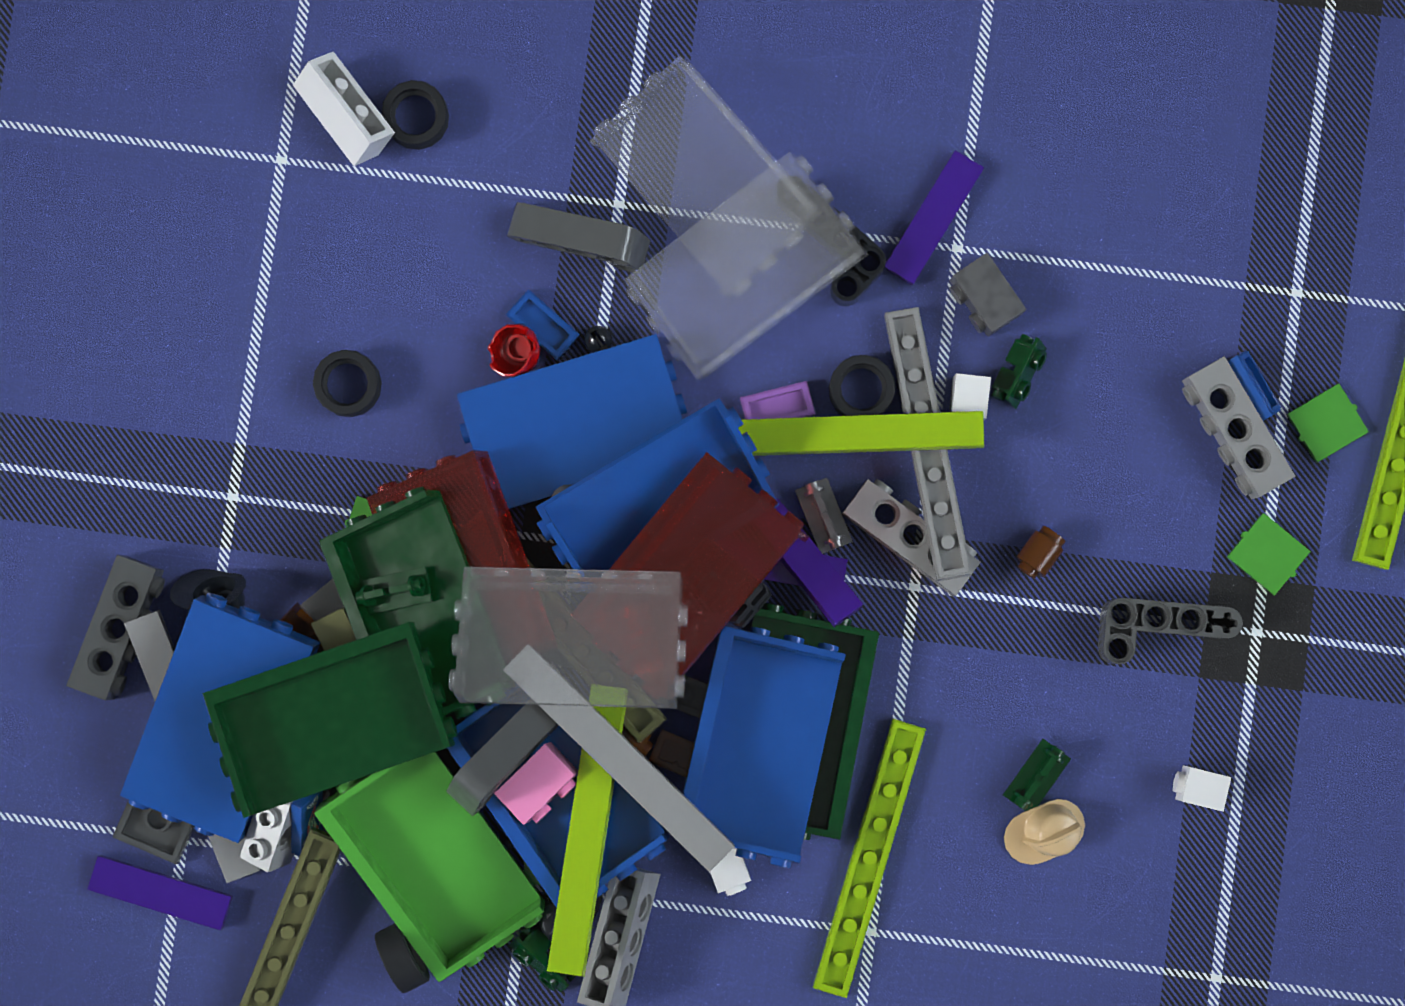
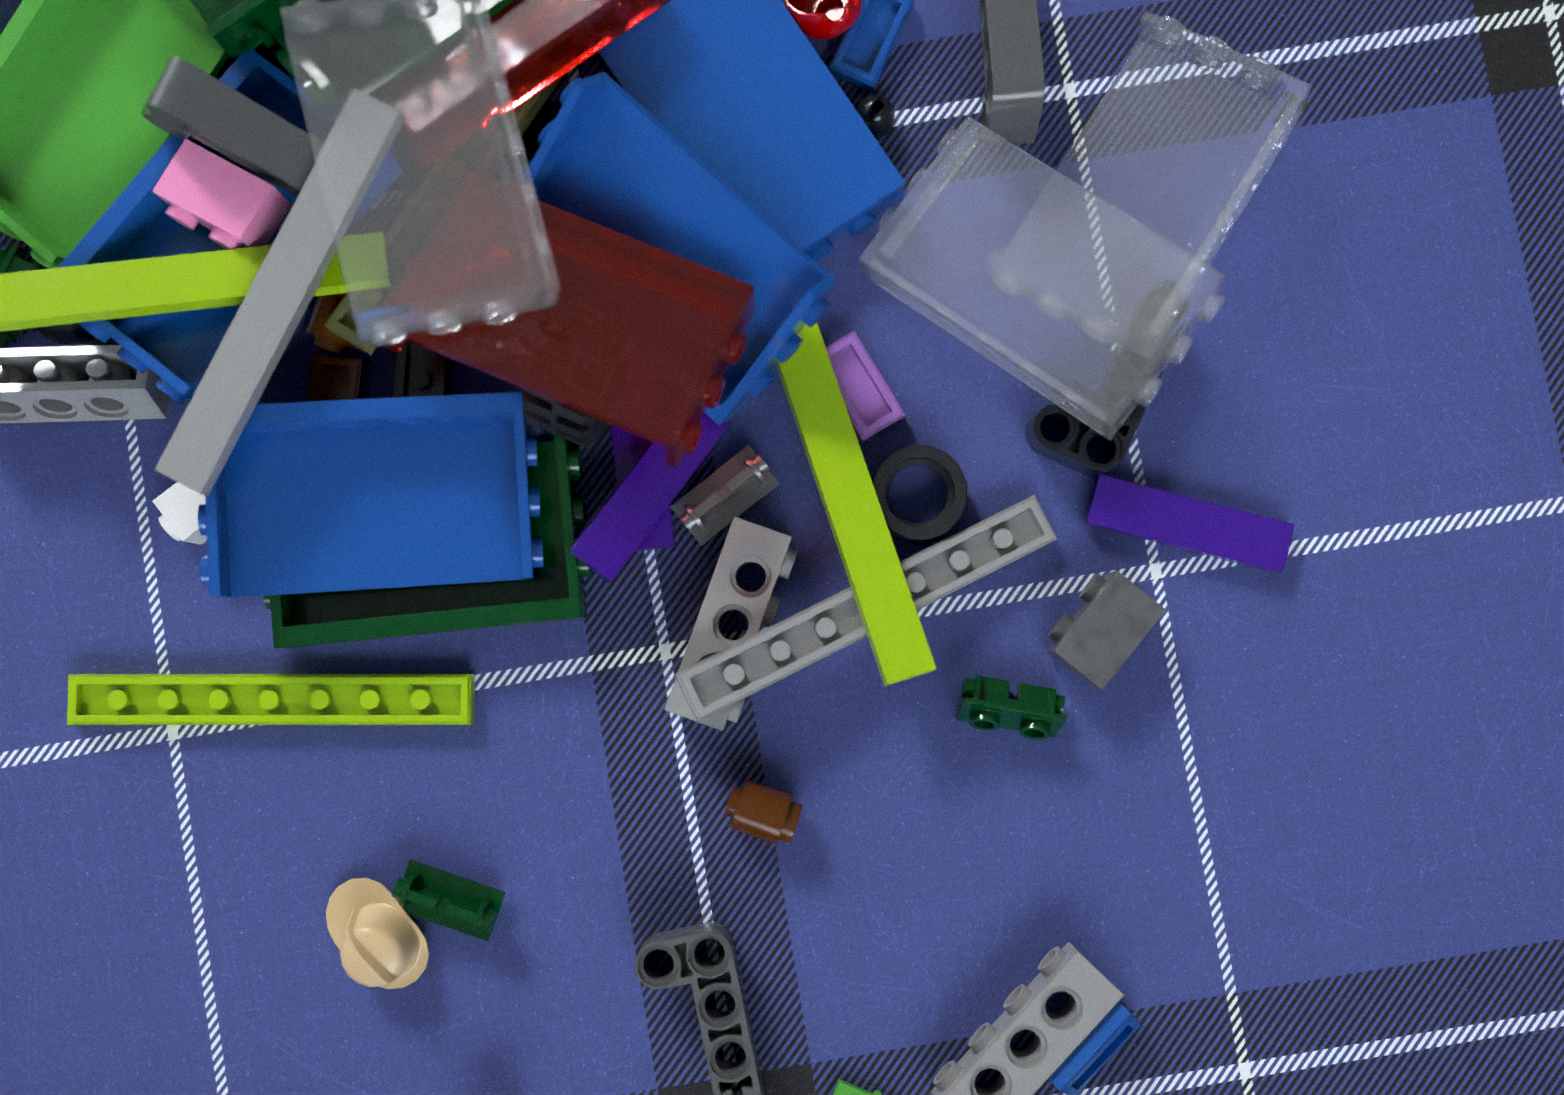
camera: 75 degrees right, 0 degrees up
(969, 393) = (956, 647): white brick -> none

